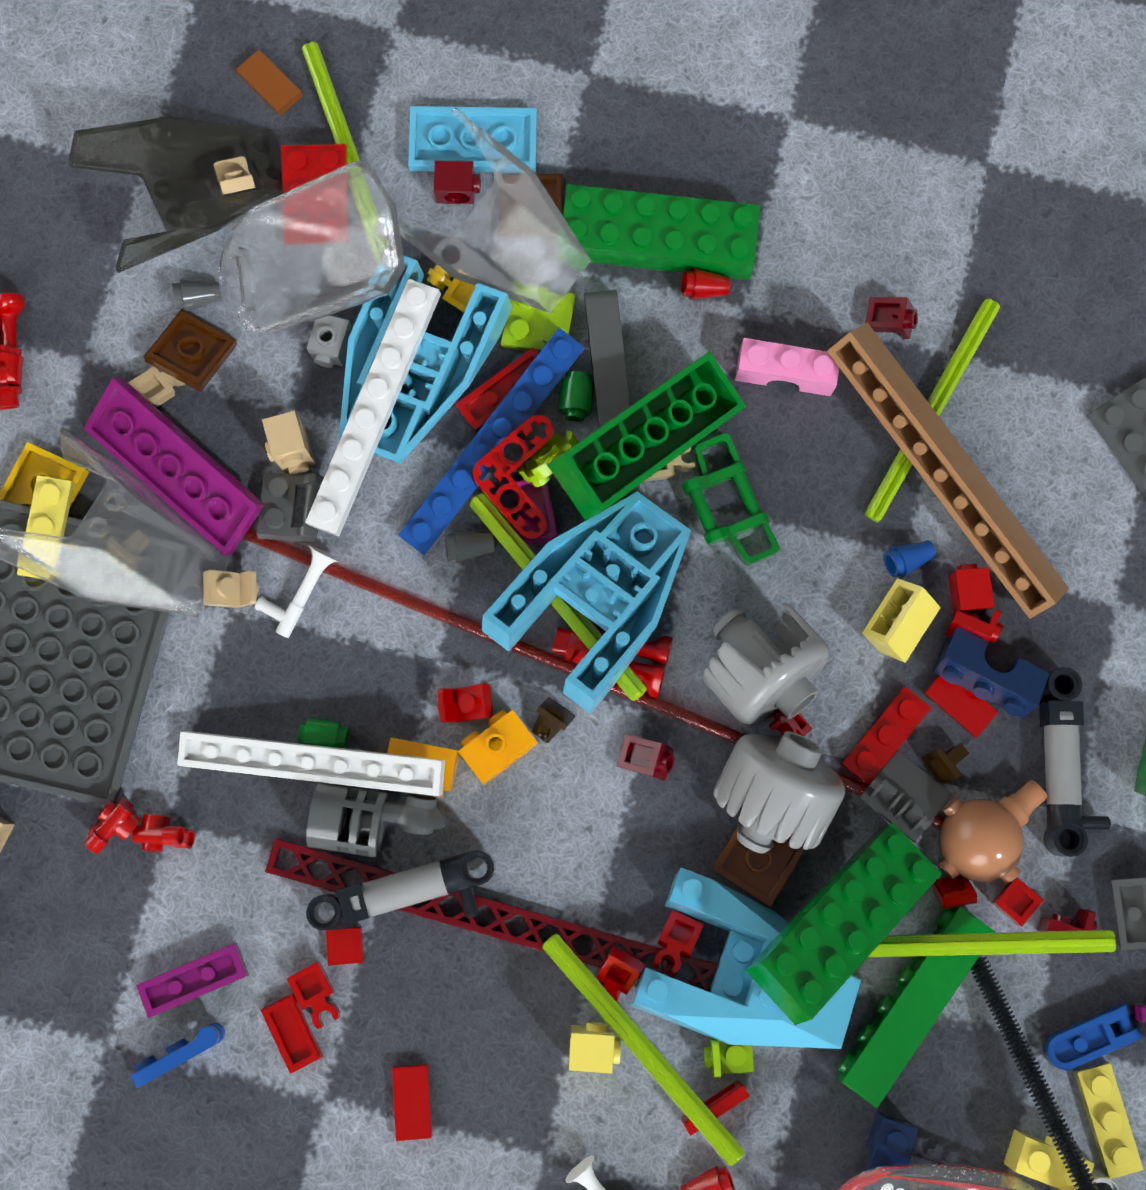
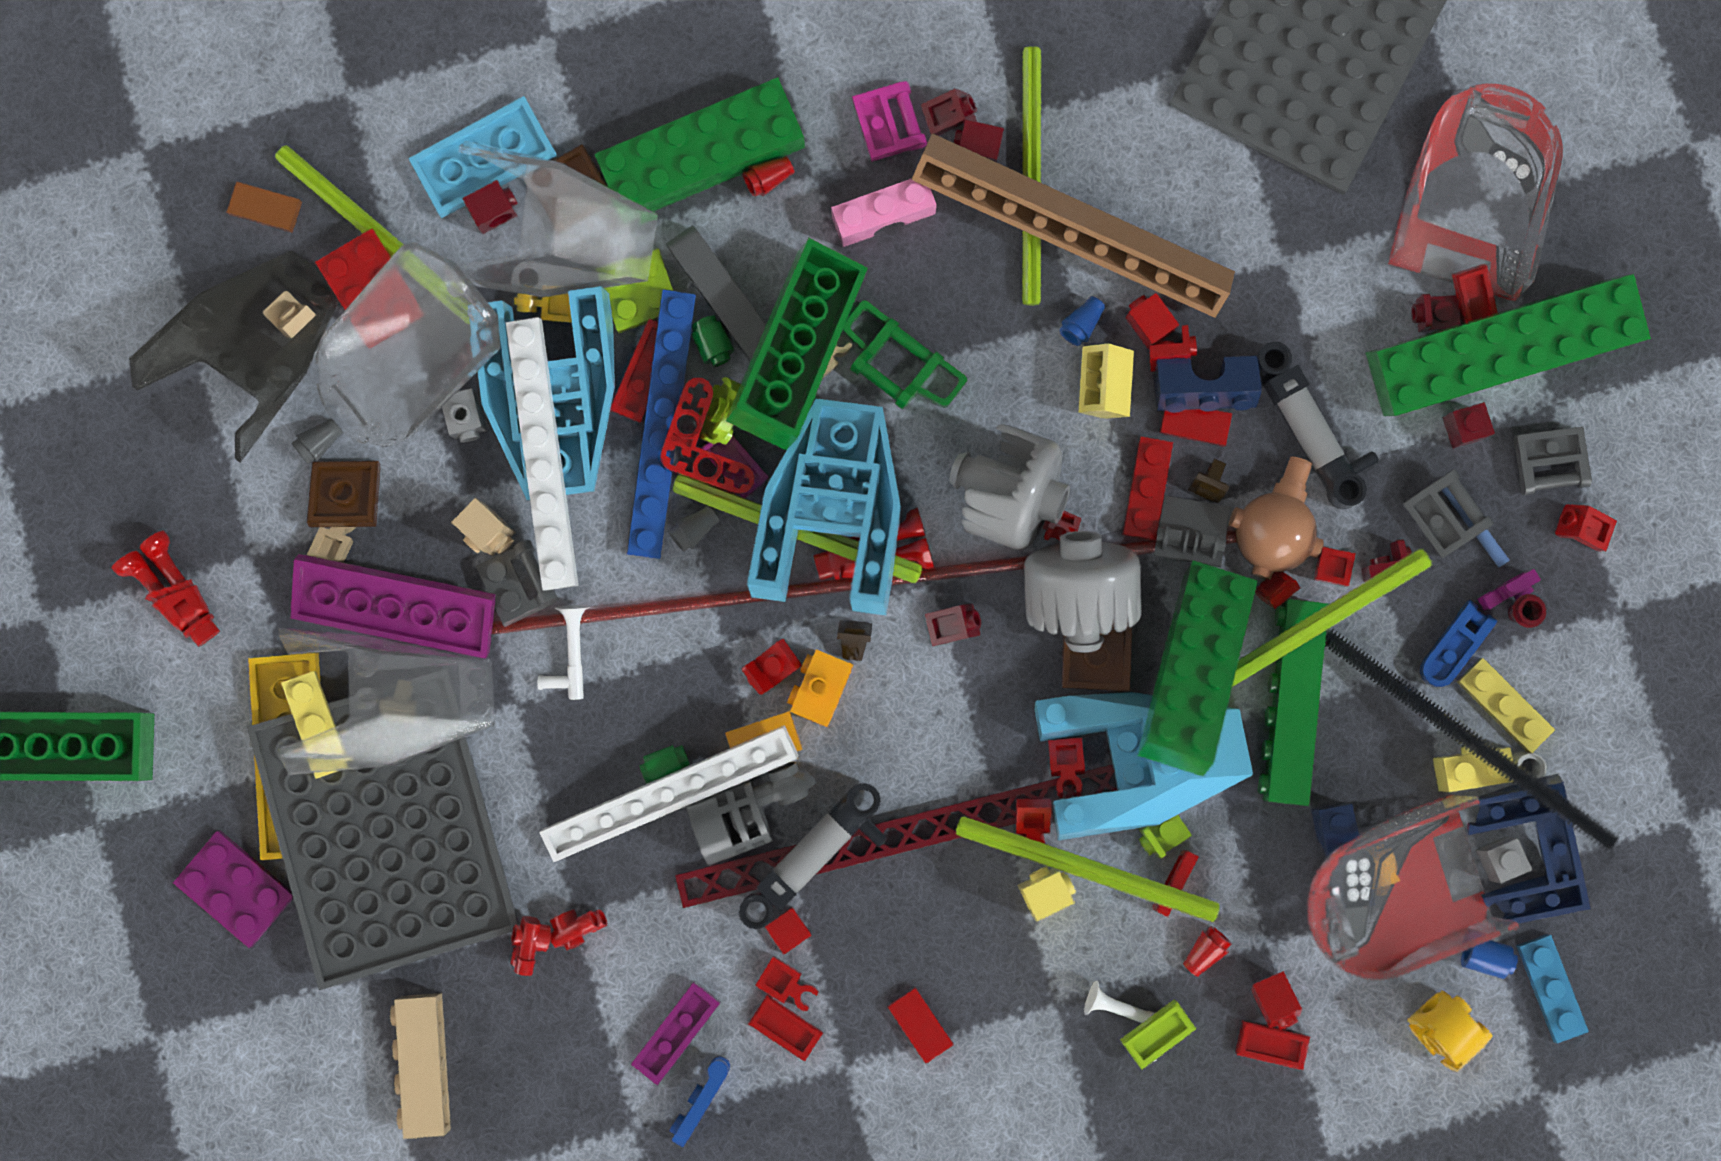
camera: 25 degrees left, 5 degrees up
(229, 588) = (508, 684): tan bracket -> none
(824, 293) = (878, 123): none -> dark pink plate
(907, 351) = (980, 139): none -> dark red brick

